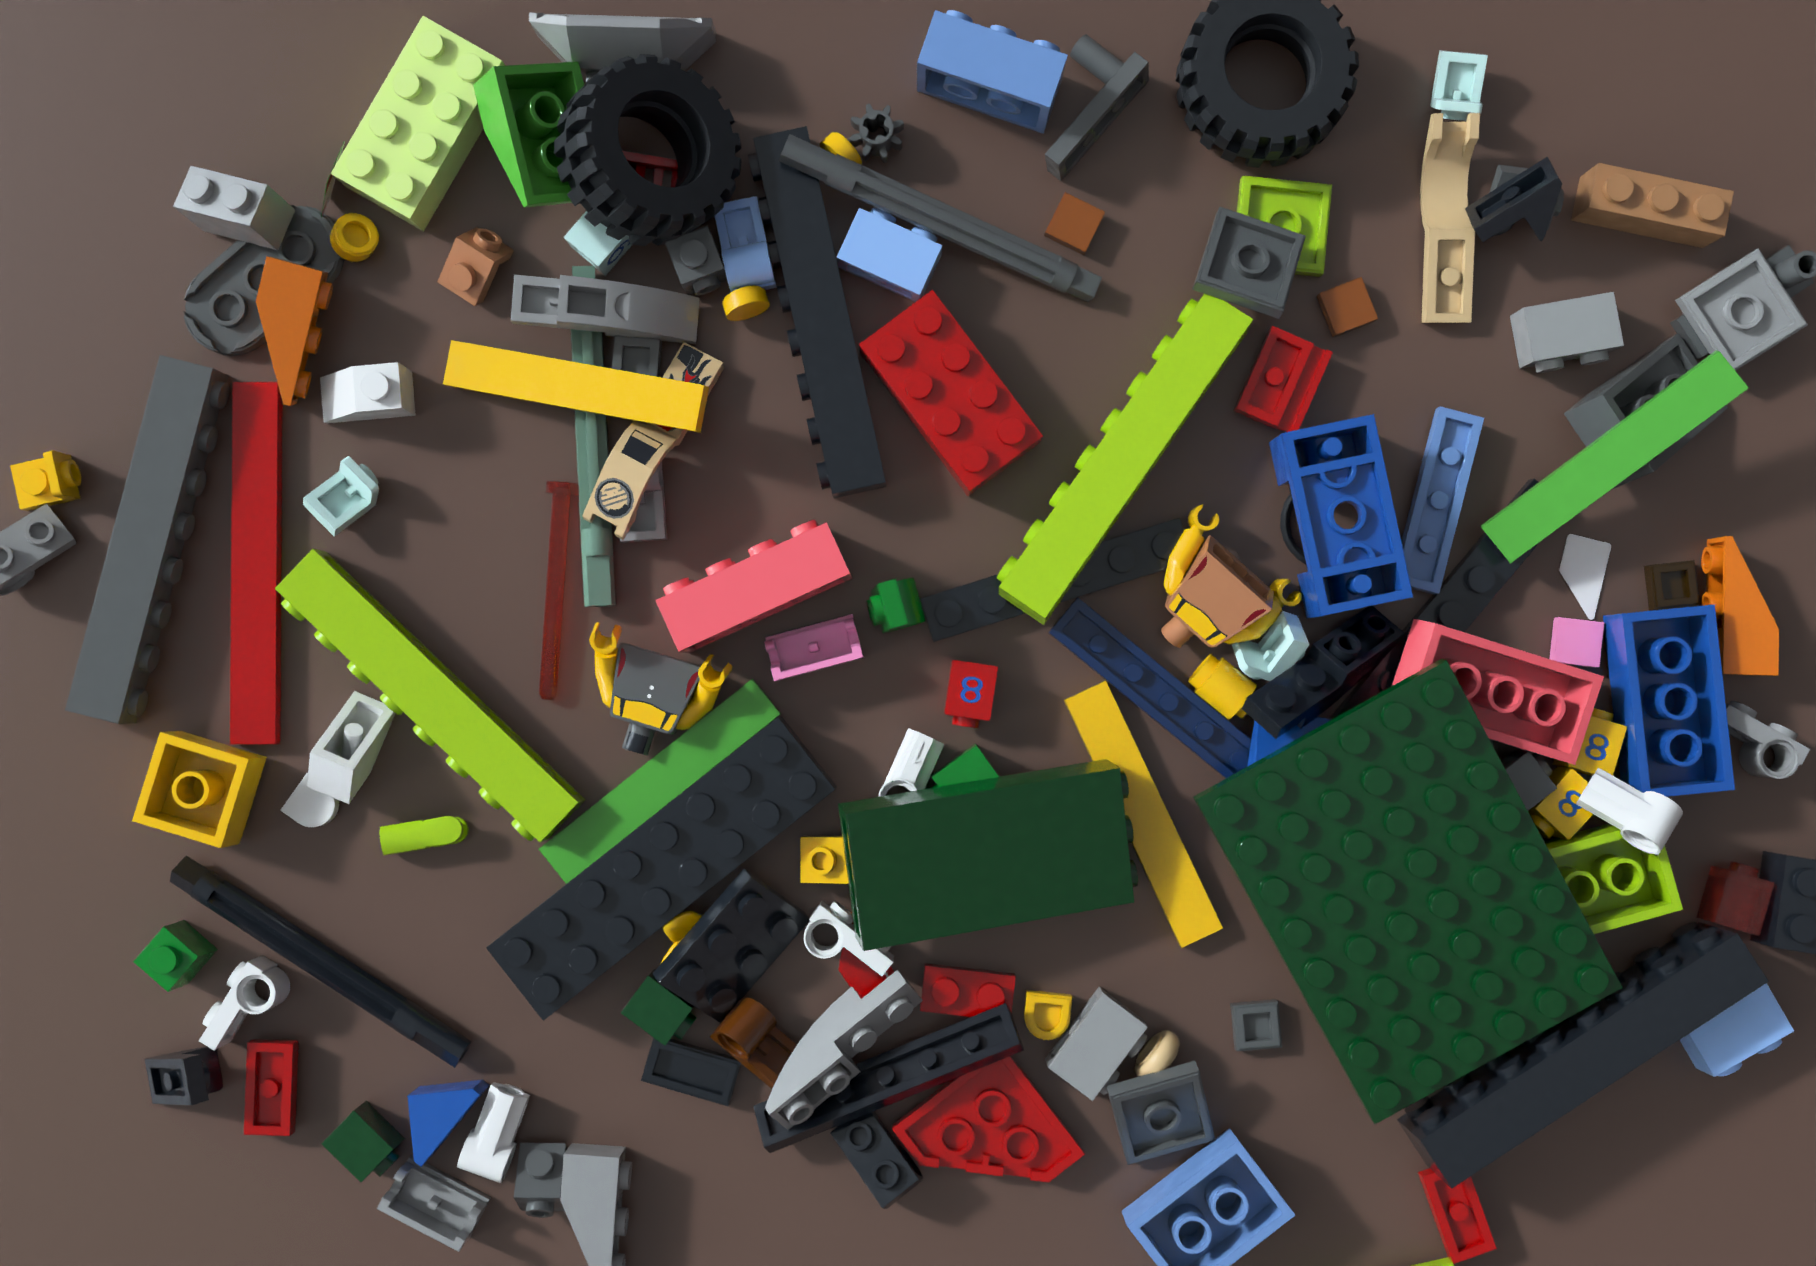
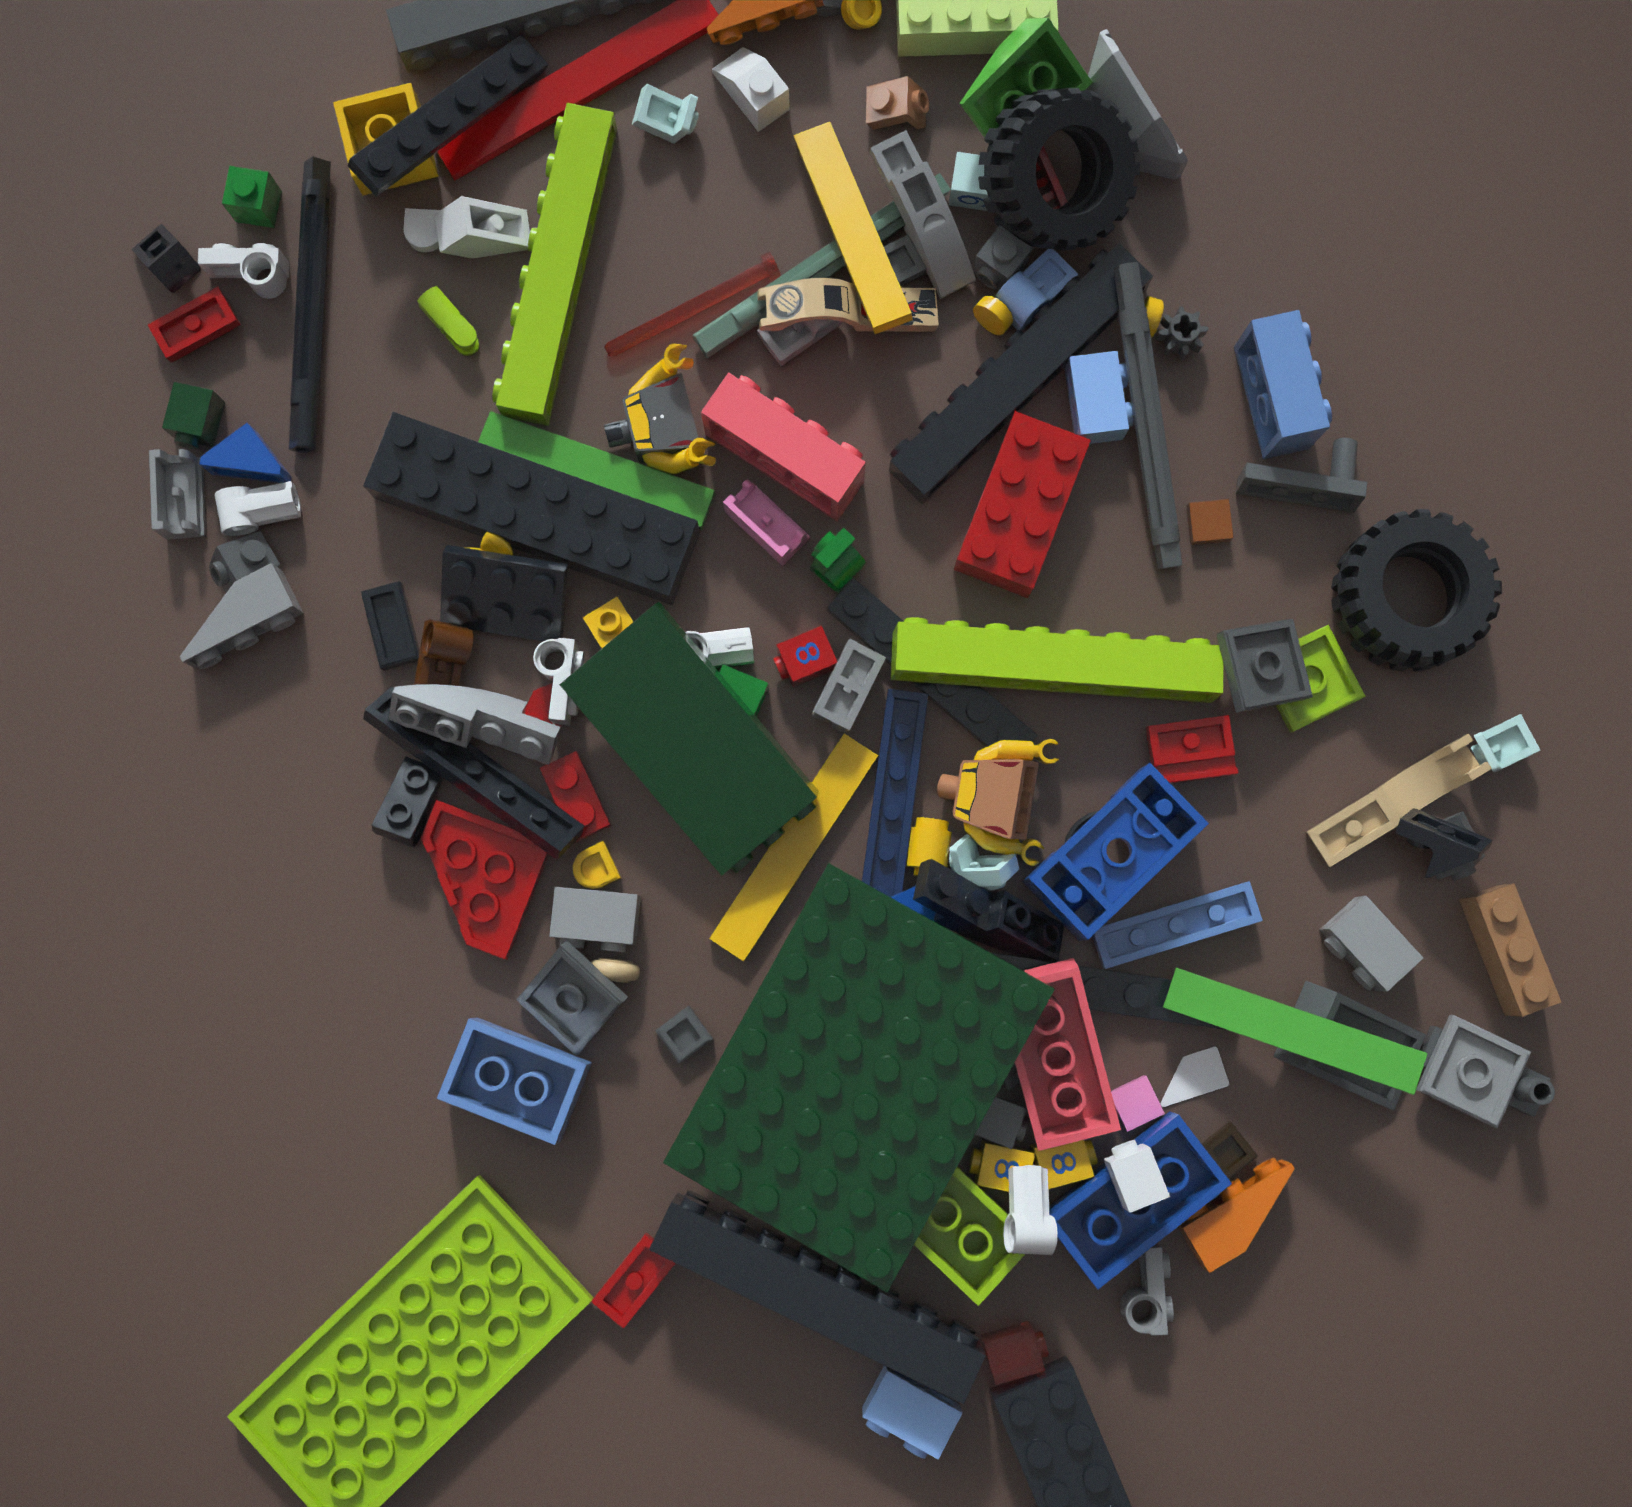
camera: 55 degrees right, 5 degrees down
(216, 715) = (447, 115): none -> black plate
(659, 1011) = (421, 571): dark green brick -> none
(1026, 669) = (848, 686): none -> light grey hinge
(1347, 307) = (1280, 766): dark orange tile -> none
(1659, 691) = (1135, 1176): none -> white brick

